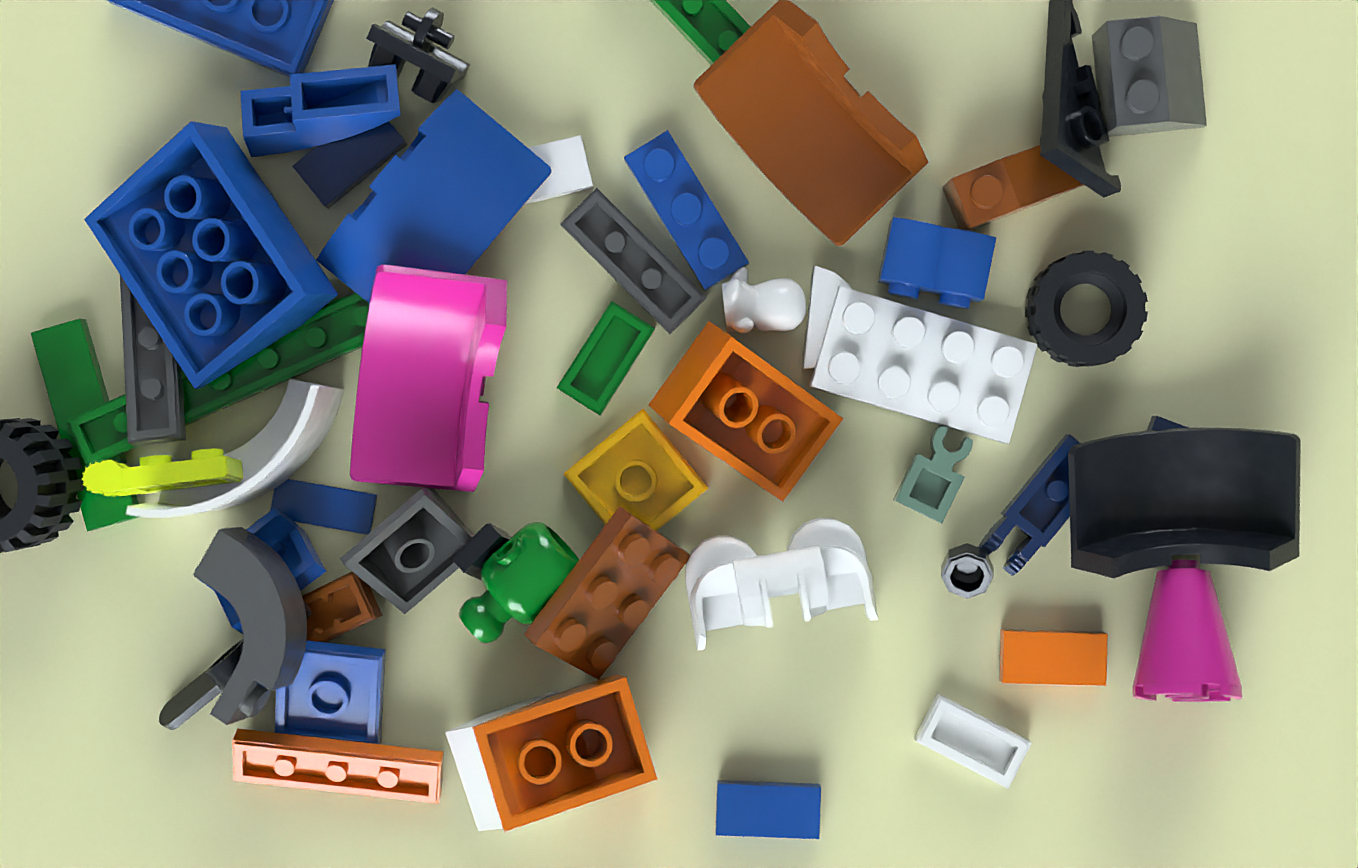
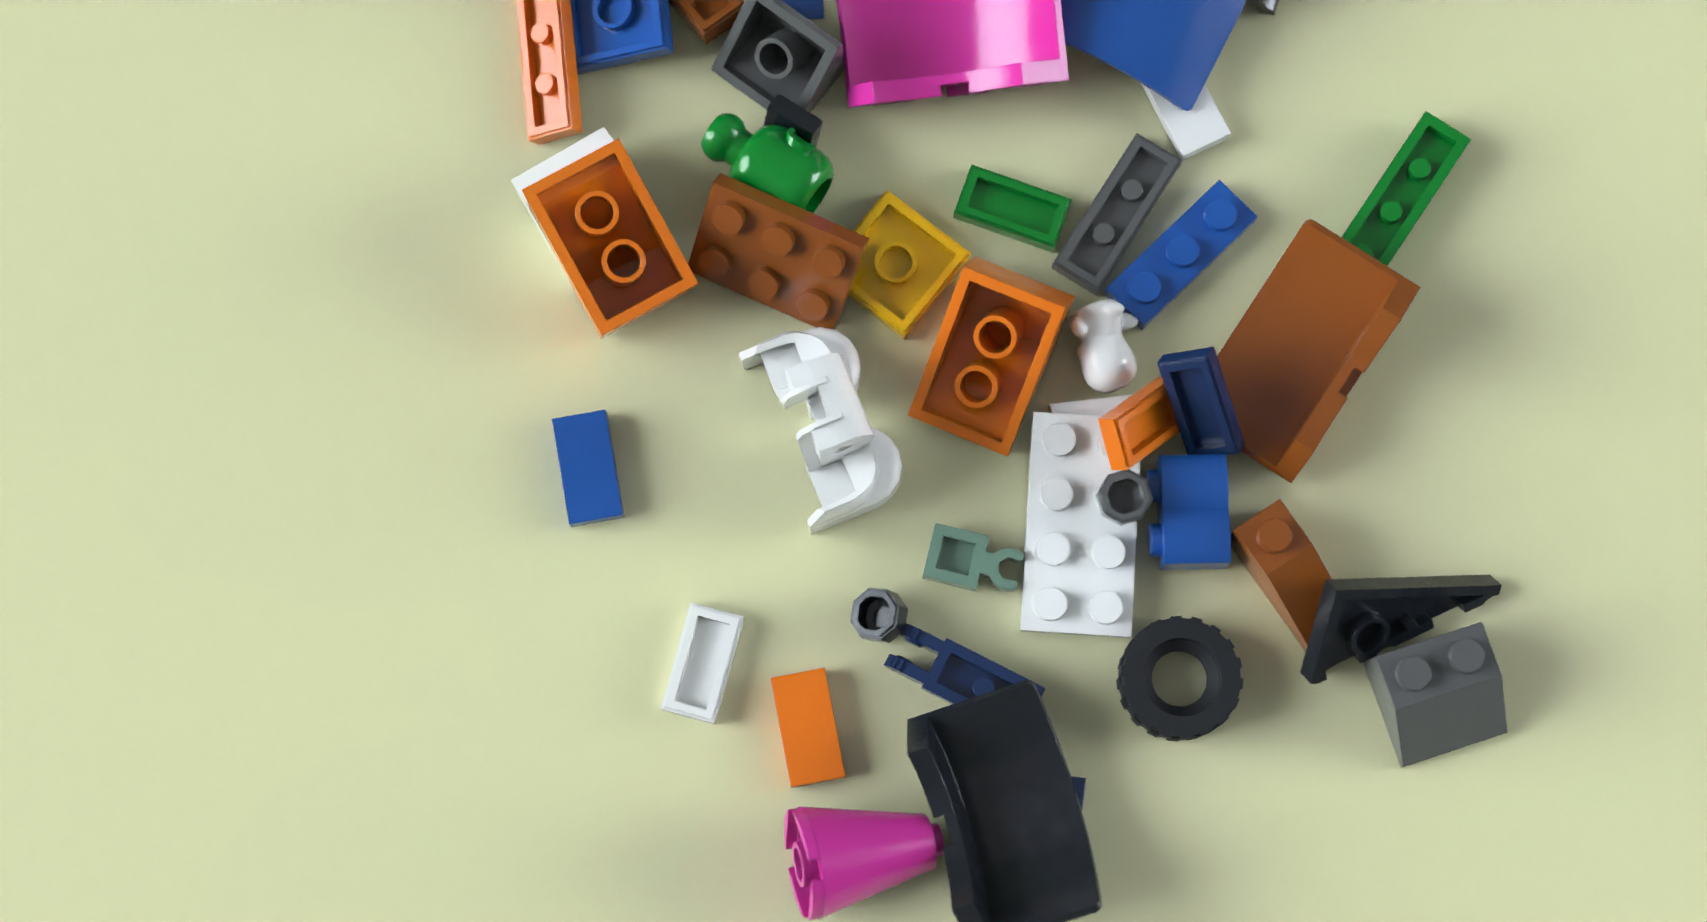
camera: 80 degrees right, 10 degrees down
(841, 228) = (1201, 402): none -> dark blue tile
(849, 288) = (1138, 426): none -> orange tile
(917, 322) = (1124, 497): none -> dark grey tile

